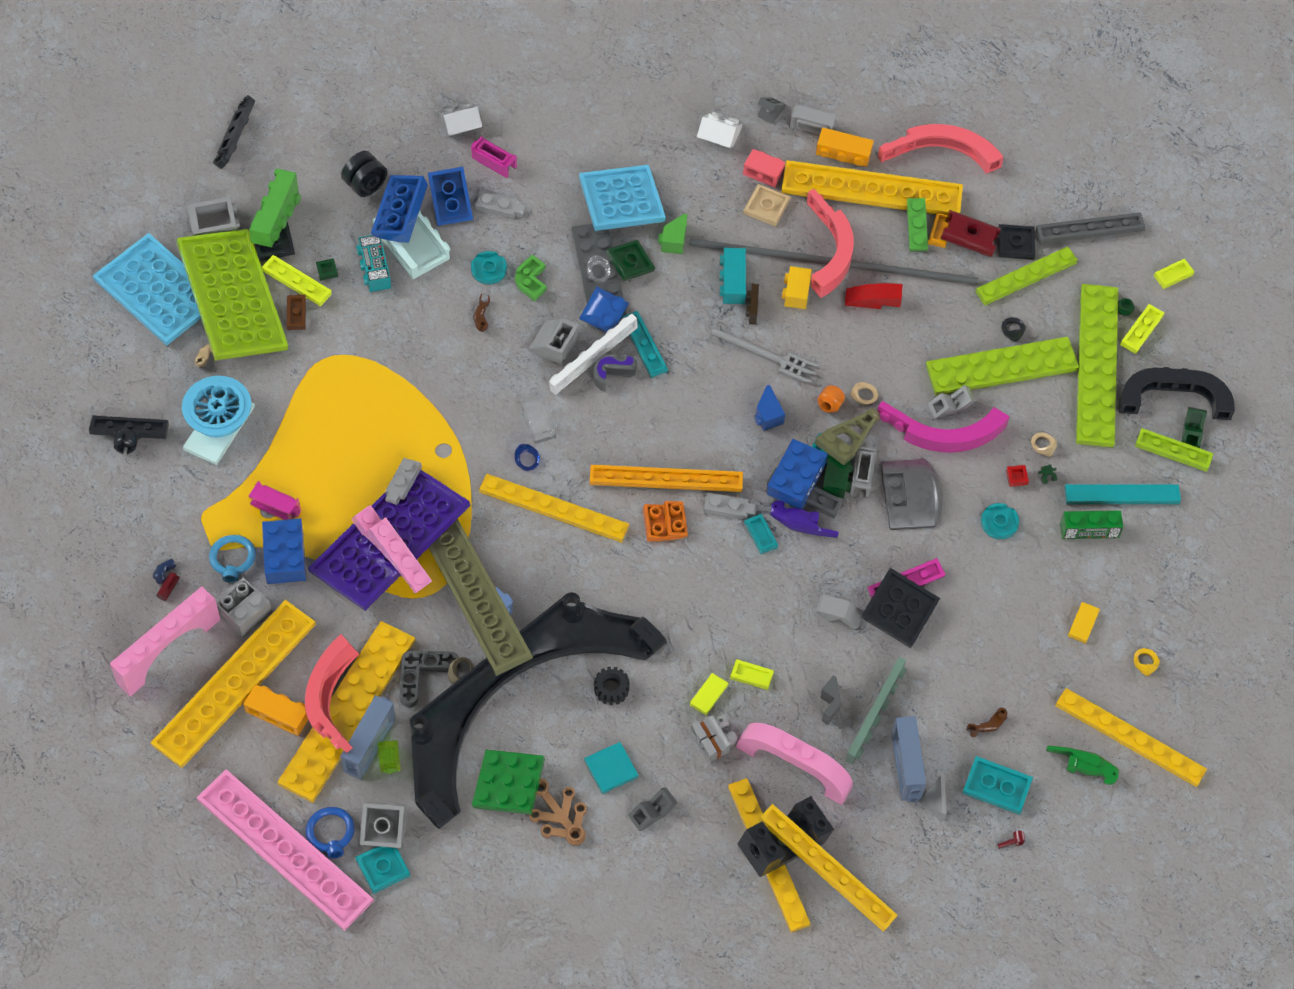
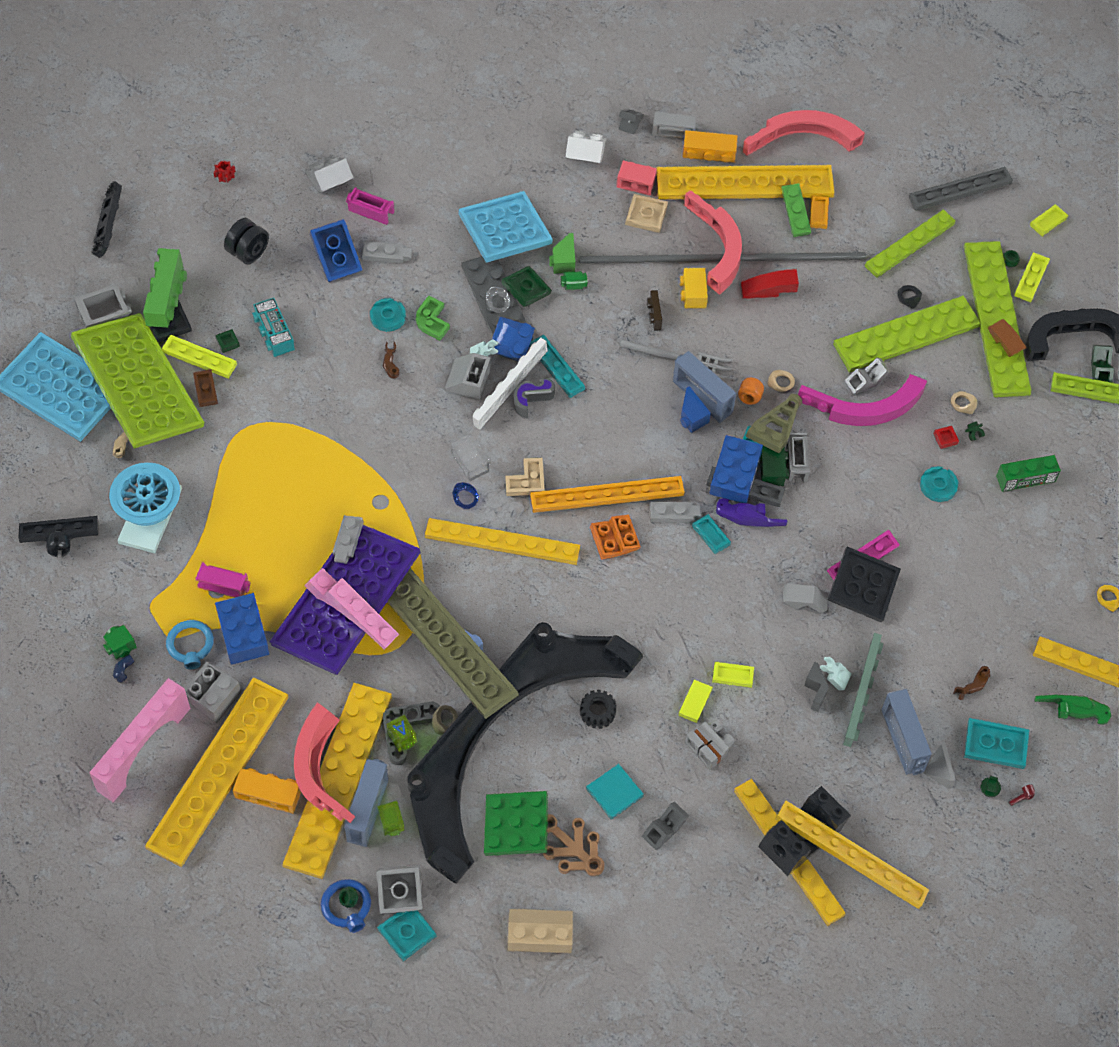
camera: 10 degrees left, 0 degrees up
(164, 544) = (118, 642): none -> green brick
(168, 586) = (130, 684): dark red piece -> none
(285, 850) = (304, 932): bright pink plate -> none
(333, 824) = (348, 897): none -> dark green plate
(357, 101) = (224, 171): none -> red gear
(399, 208) = (289, 269): blue slope -> none
(415, 676) = (402, 733): none -> clear neon green brick
(423, 250) = (307, 299): light aqua panel -> none
(509, 888) = (540, 931): none -> tan slope
(575, 316) = (485, 348): none -> light aqua plate
(590, 455) = (529, 482): none -> tan plate
(679, 261) = (574, 280): none -> green brick
(733, 275) = (630, 286): teal brick -> none
(789, 391) = (707, 386): none -> sand blue window
(802, 755) = (799, 745): bright pink arch -> none
(855, 691) = (838, 674): none -> light aqua plate
(911, 494) = (848, 471): flat silver slope -> none
(970, 233) = (848, 211): dark red piece -> none
(982, 826) = (990, 786): none -> dark green plate
(1016, 242) = (893, 212): black tile -> none
(1083, 622) = (1041, 569): yellow tile -> none
(1101, 385) = (1006, 335): none -> dark orange slope
(1122, 494) = (1049, 439): teal tile -> none

